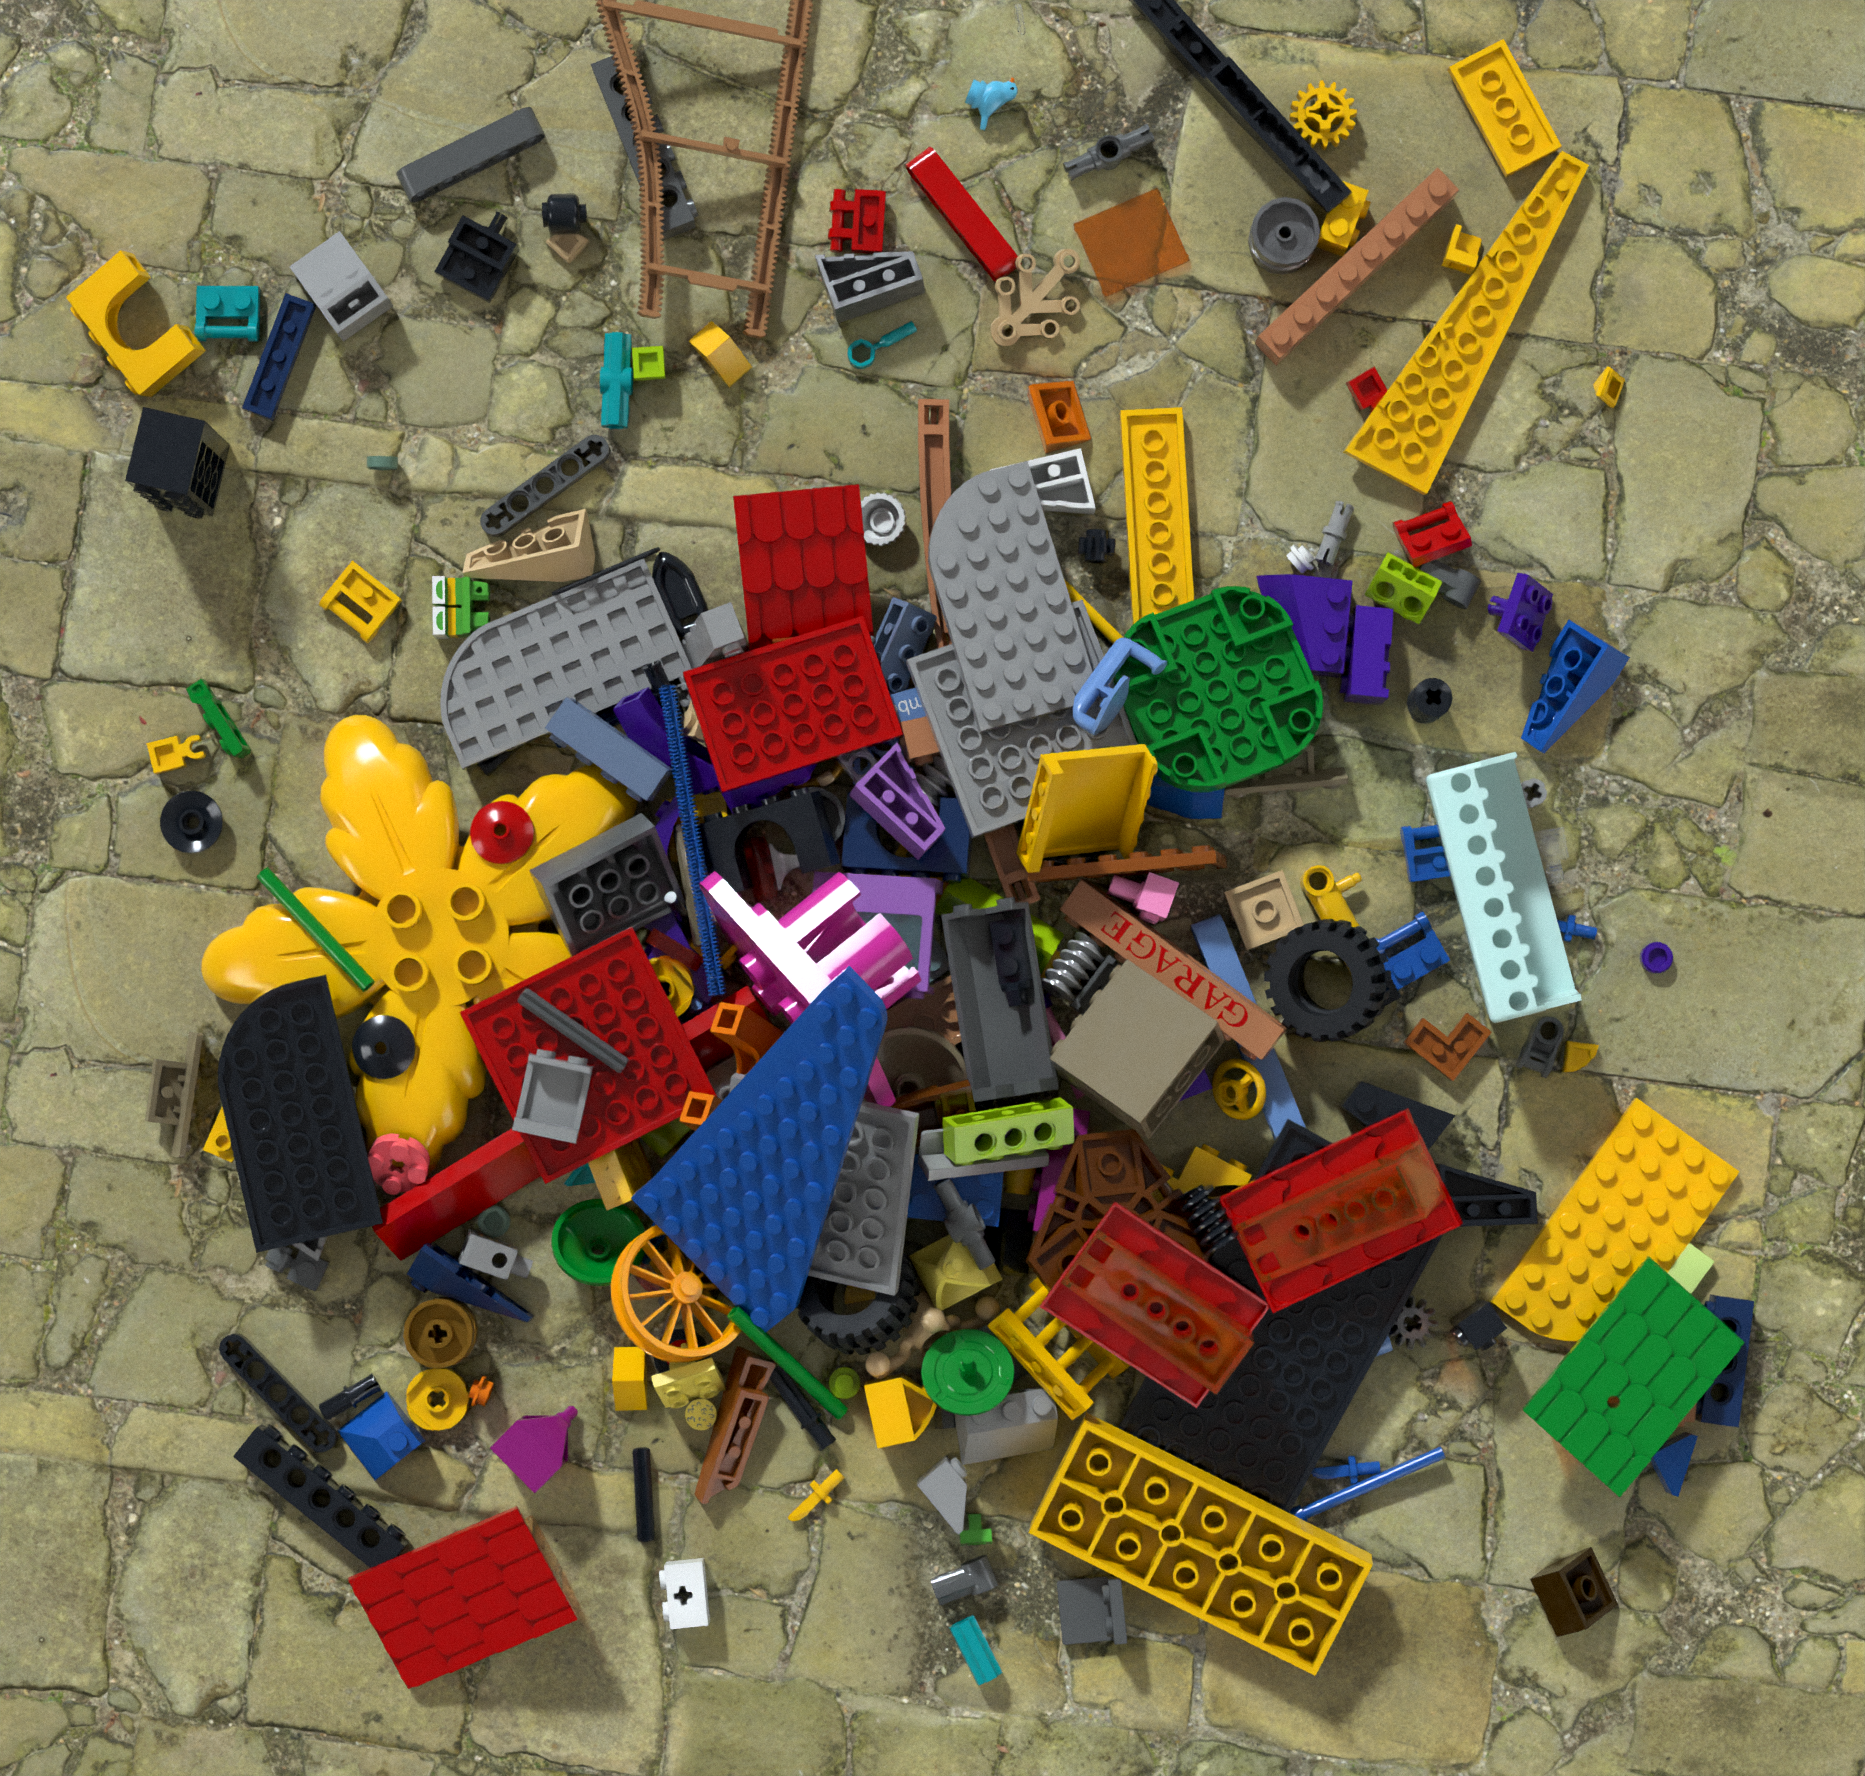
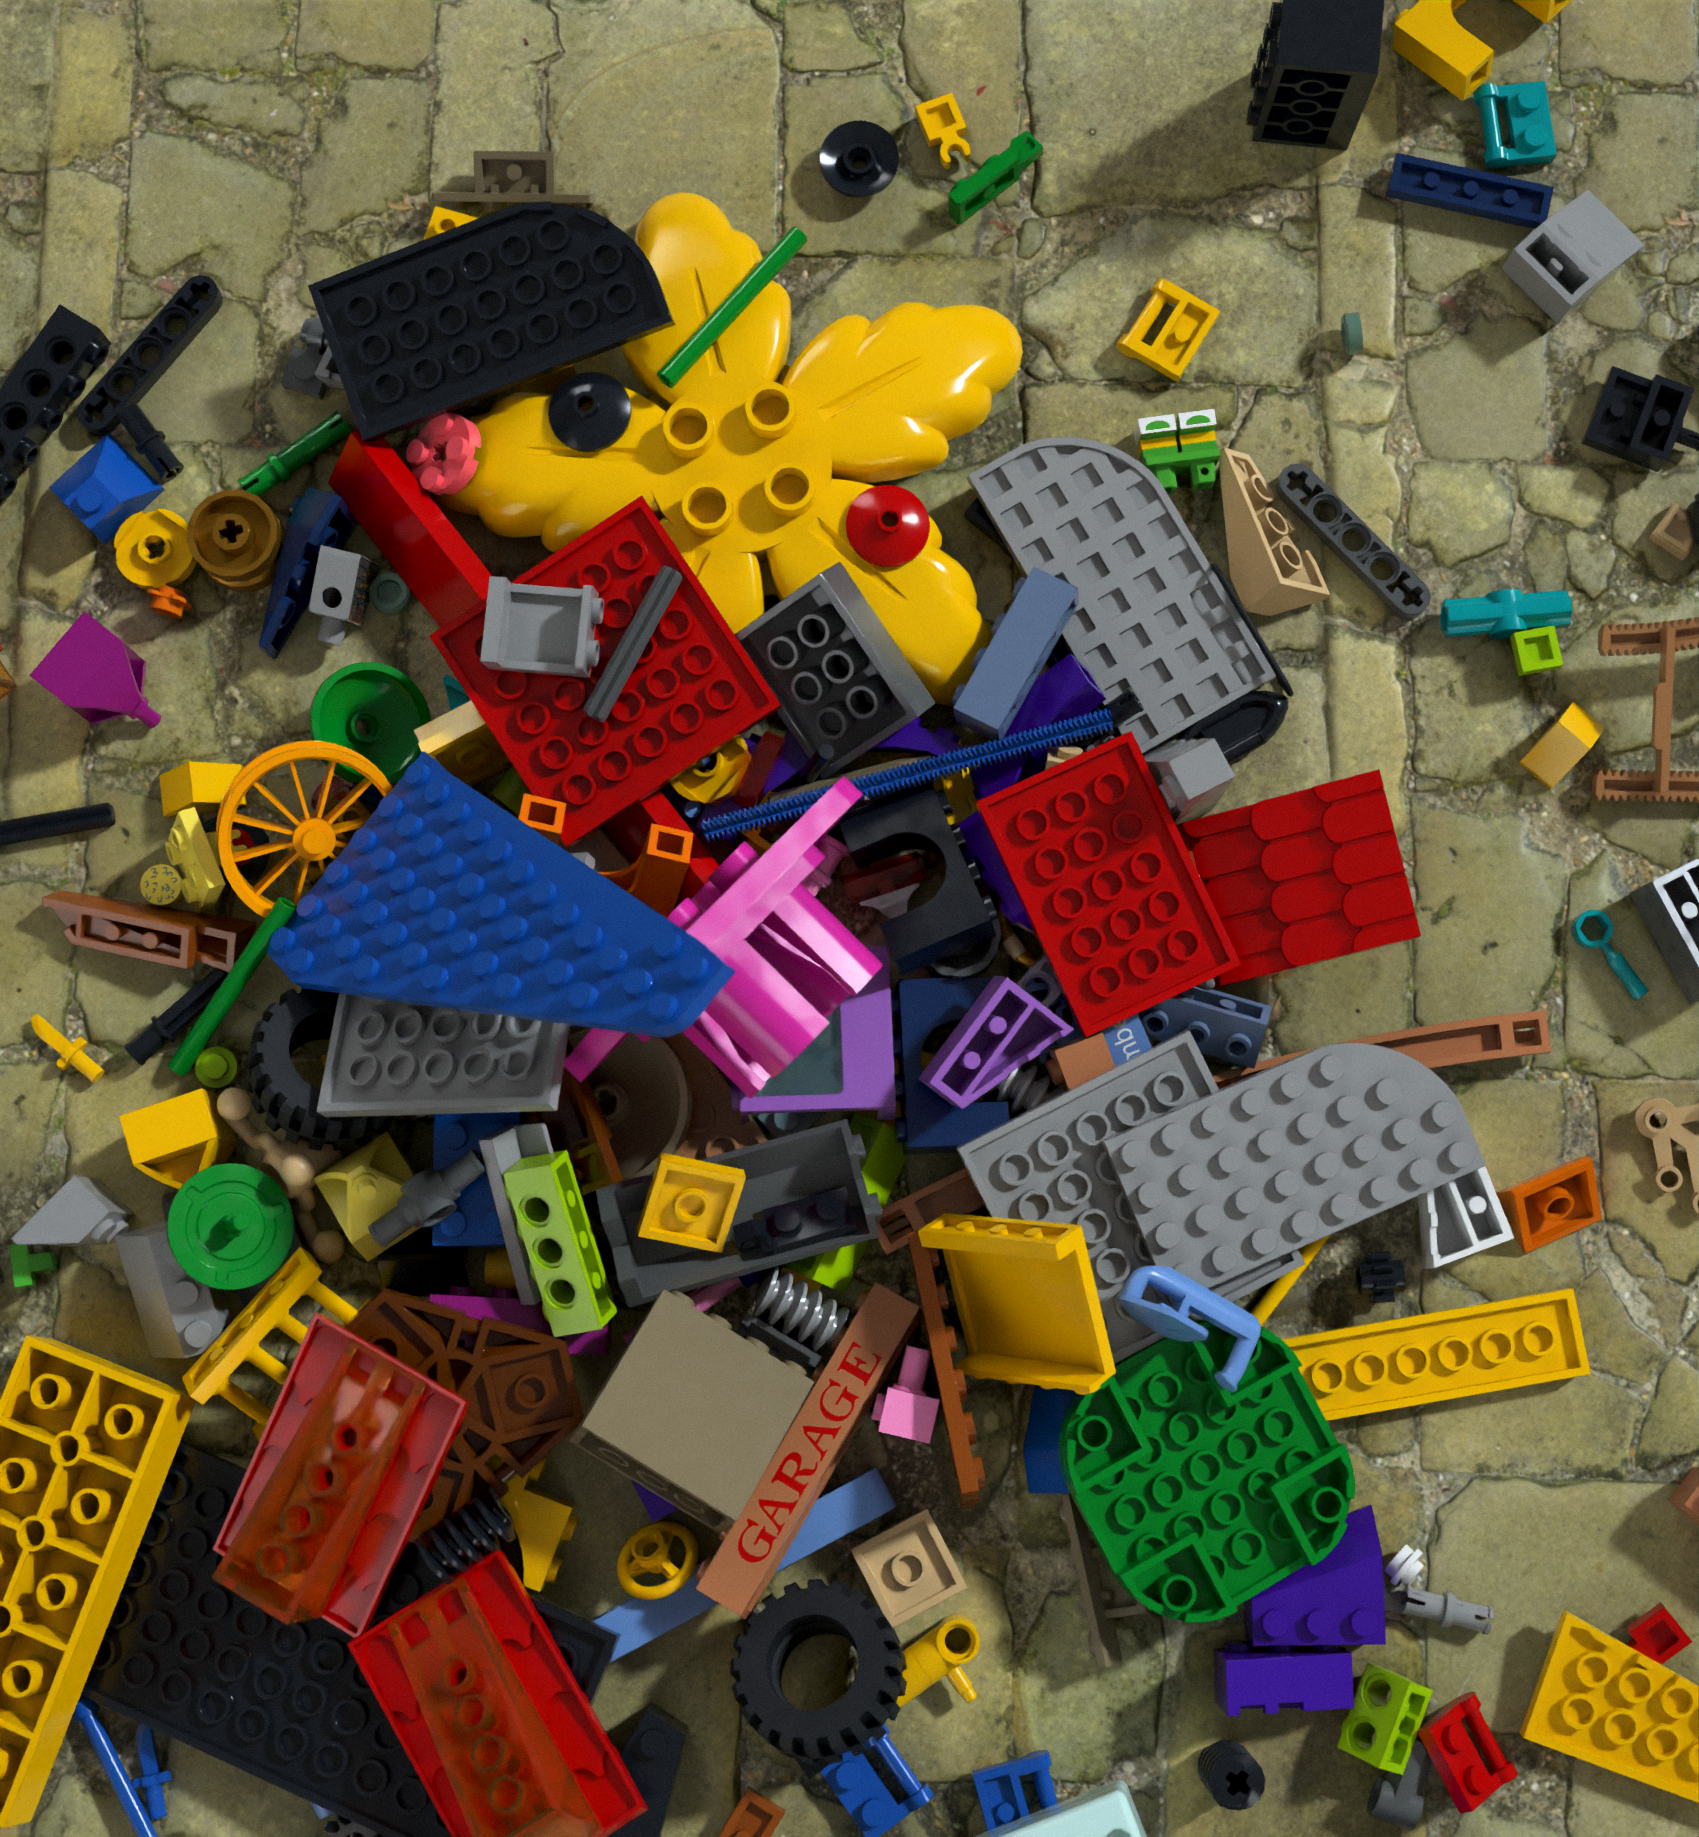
camera: 85 degrees right, 5 degrees down
(375, 1284) = (294, 456): none -> green pin
(882, 519) = (1374, 980): white hat -> none
(989, 1034) = (691, 1202): none -> yellow plate

